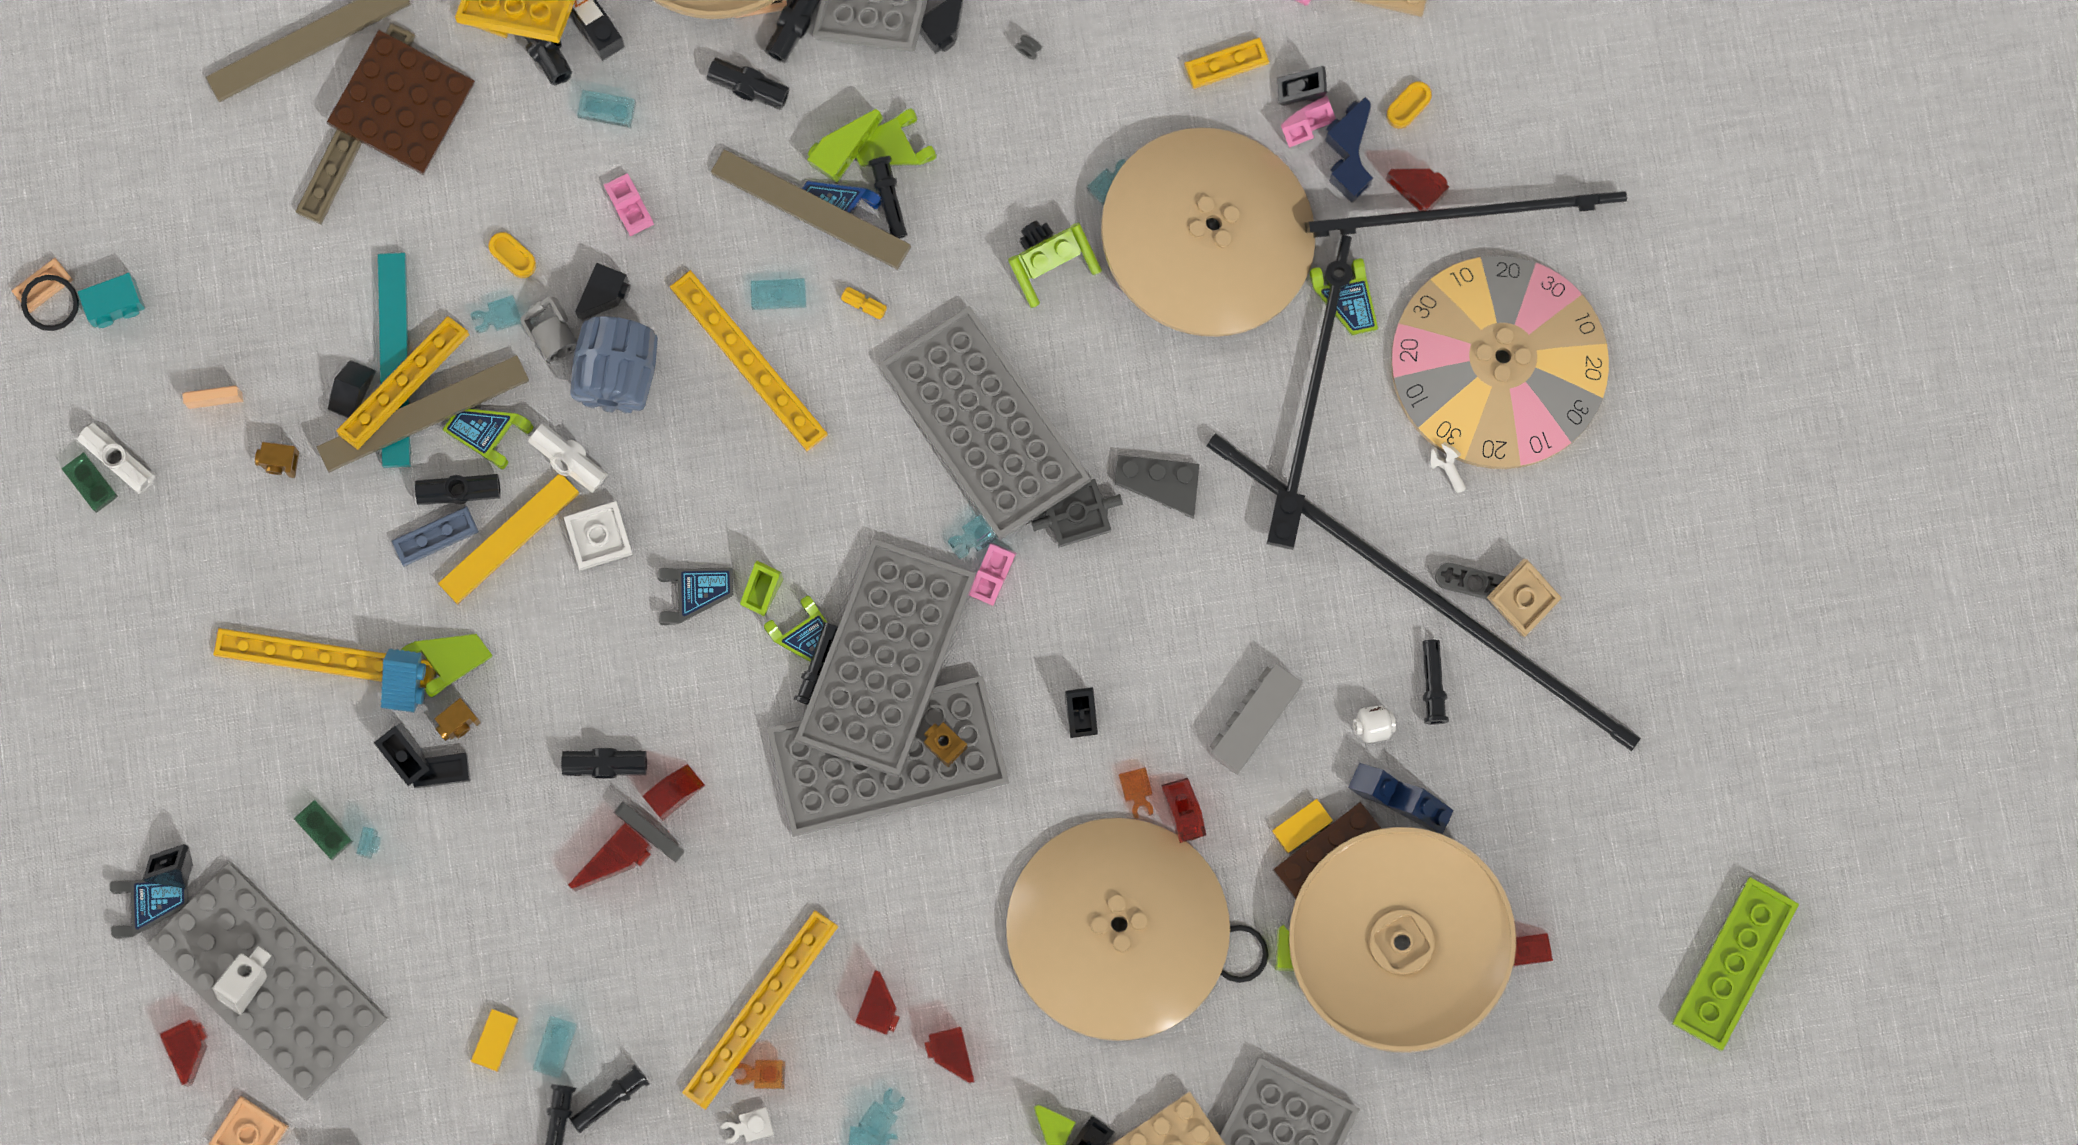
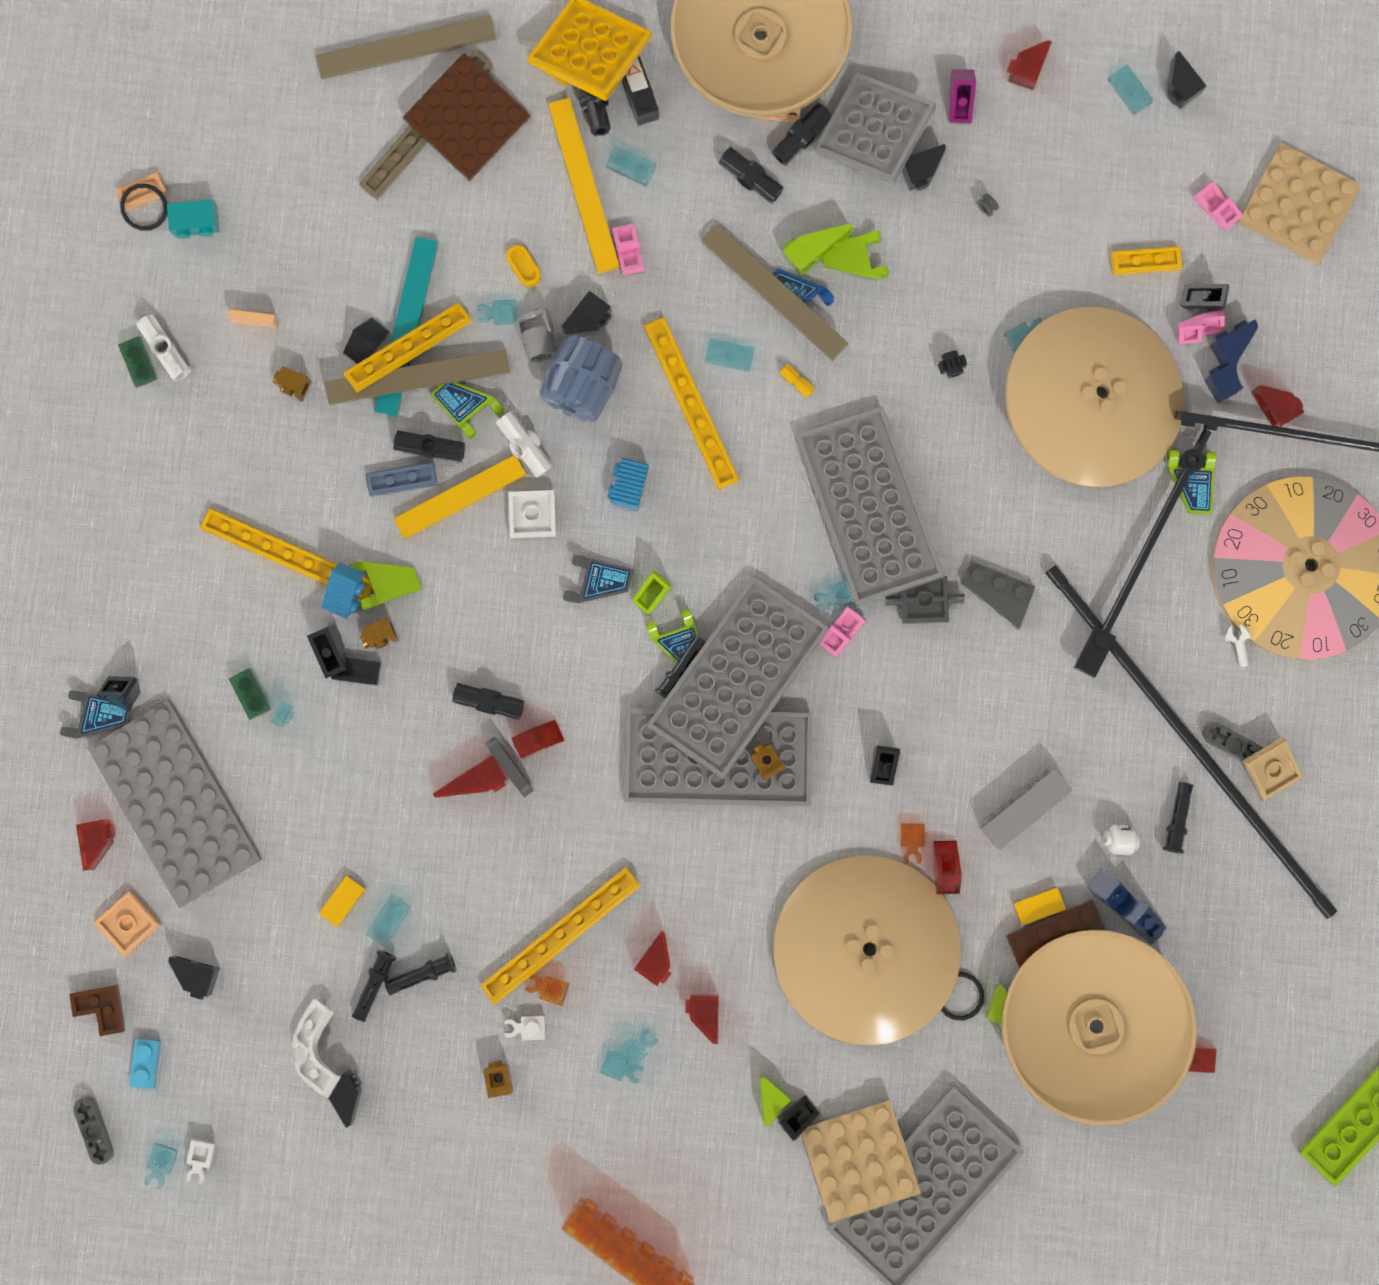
camera: 20 degrees right, 5 degrees up
(237, 990) = (144, 806): white torso -> none
(558, 145) = (583, 185): none -> yellow tile
(701, 471) = (628, 484): none -> dark azure brick
(886, 184) = (841, 288): black pin -> none
(1049, 255) = (958, 382): lime plate -> none
(1408, 105) = (1287, 335): yellow tile -> none

